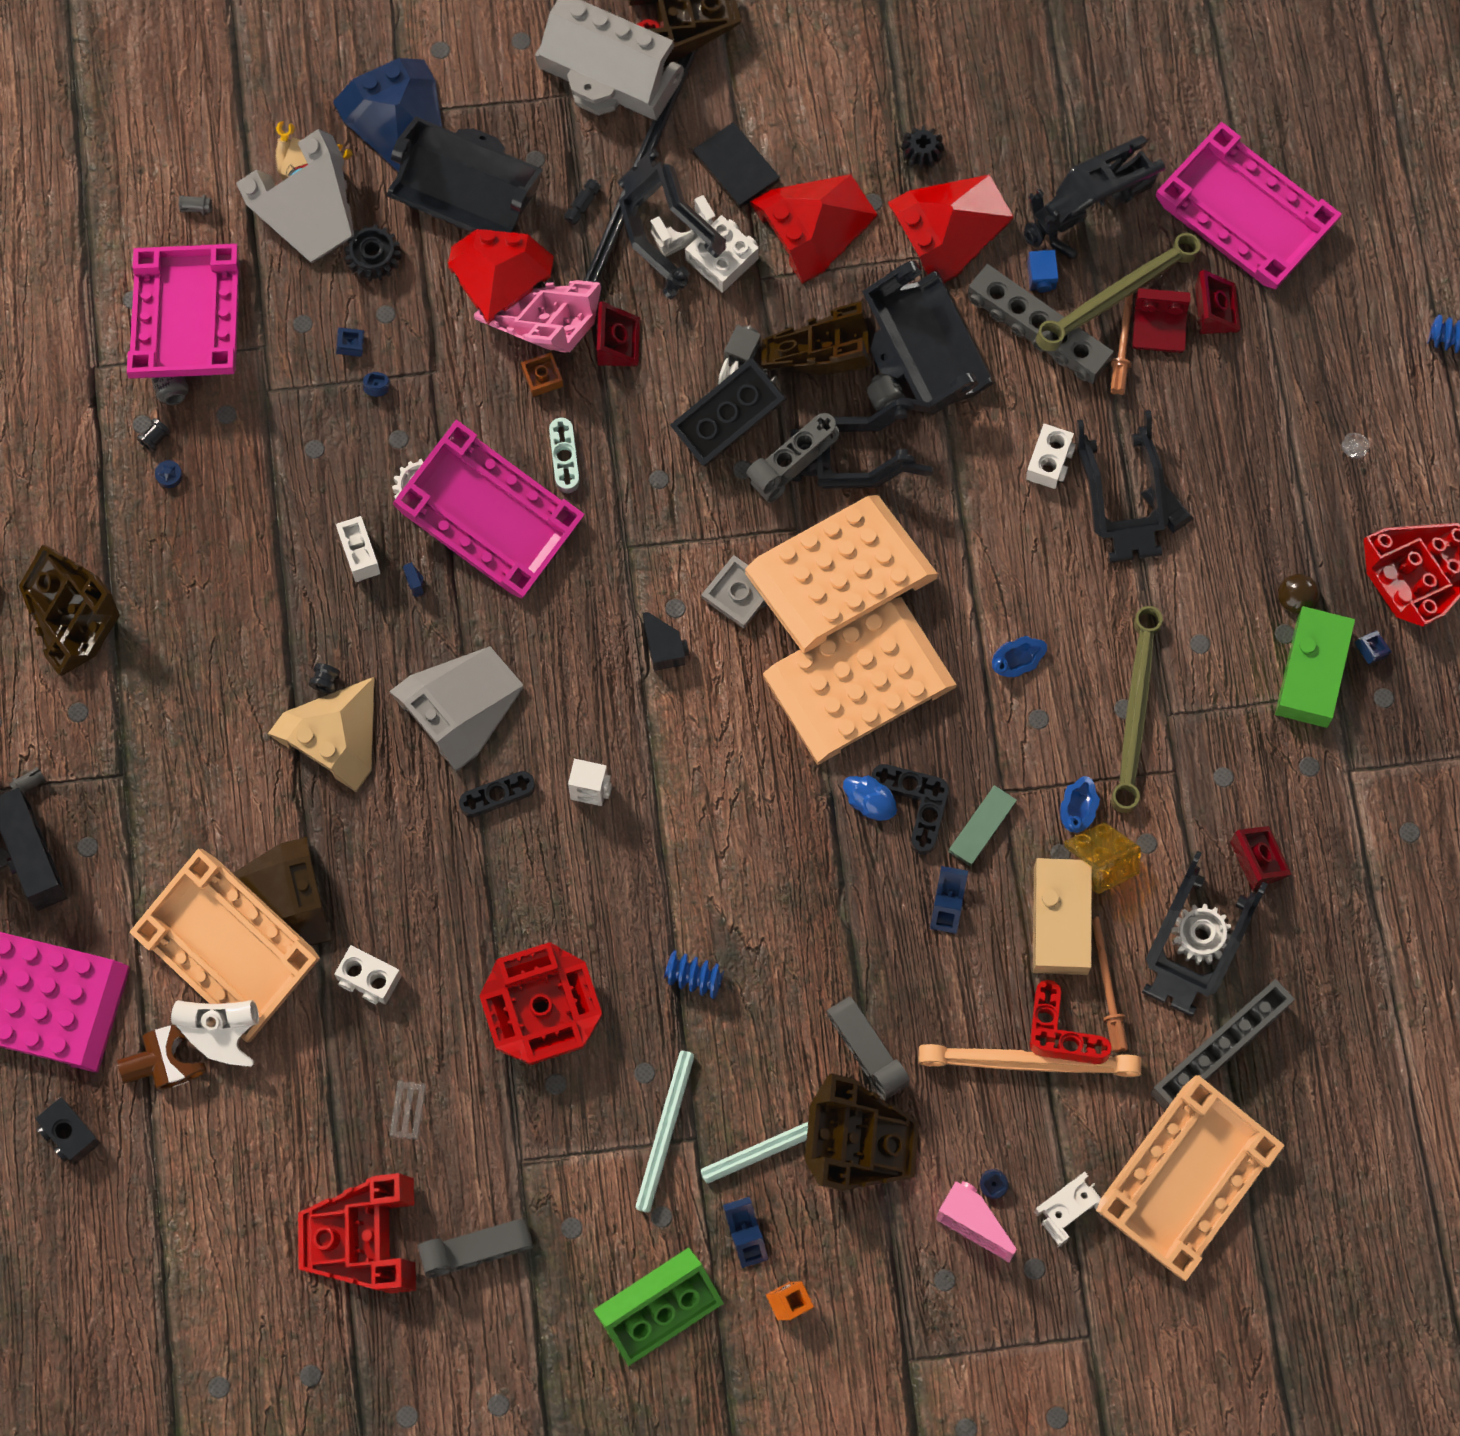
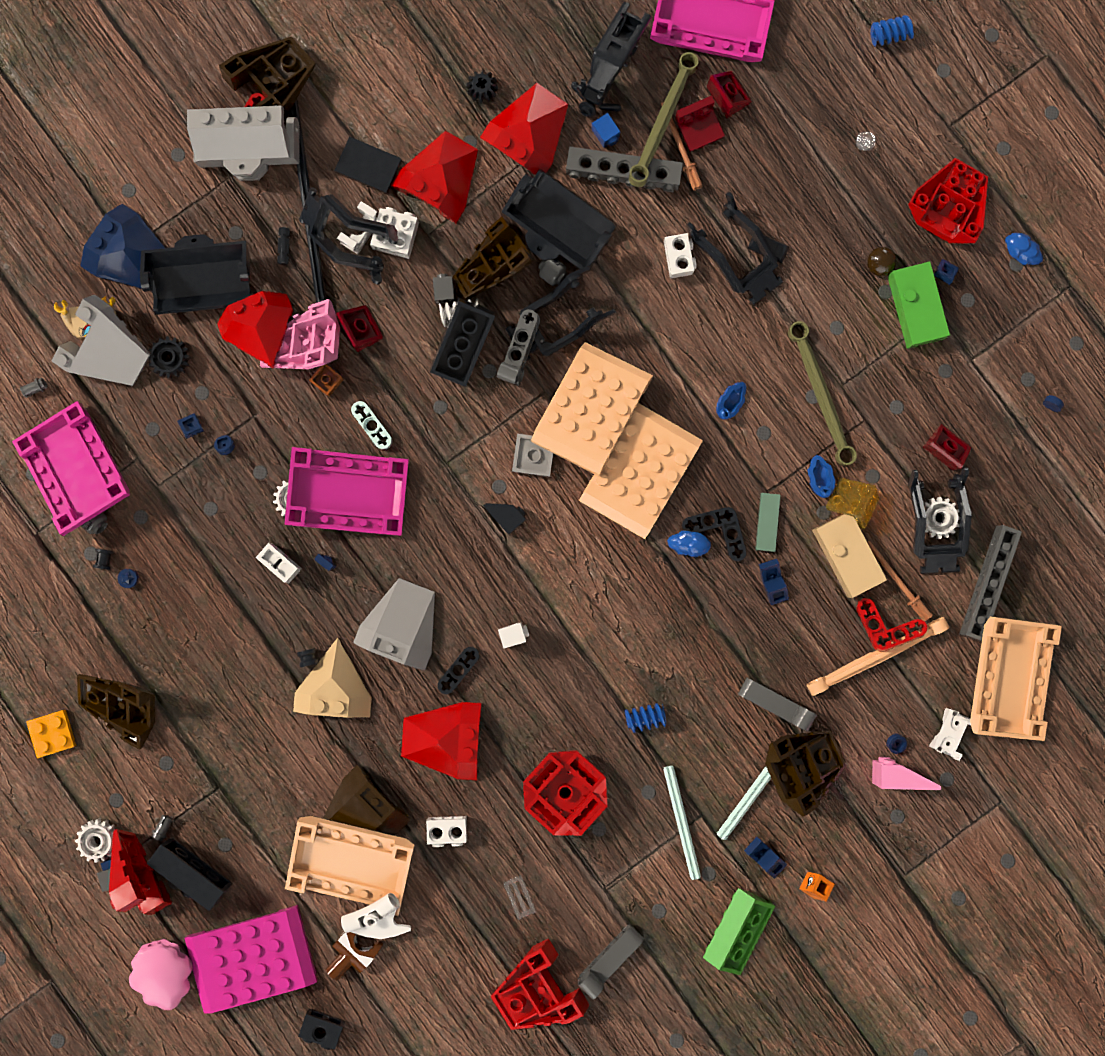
camera: 25 degrees left, 15 degrees up
(430, 868) = (445, 739): none -> red wedge
(1424, 874) = (1053, 403): none -> dark blue tile

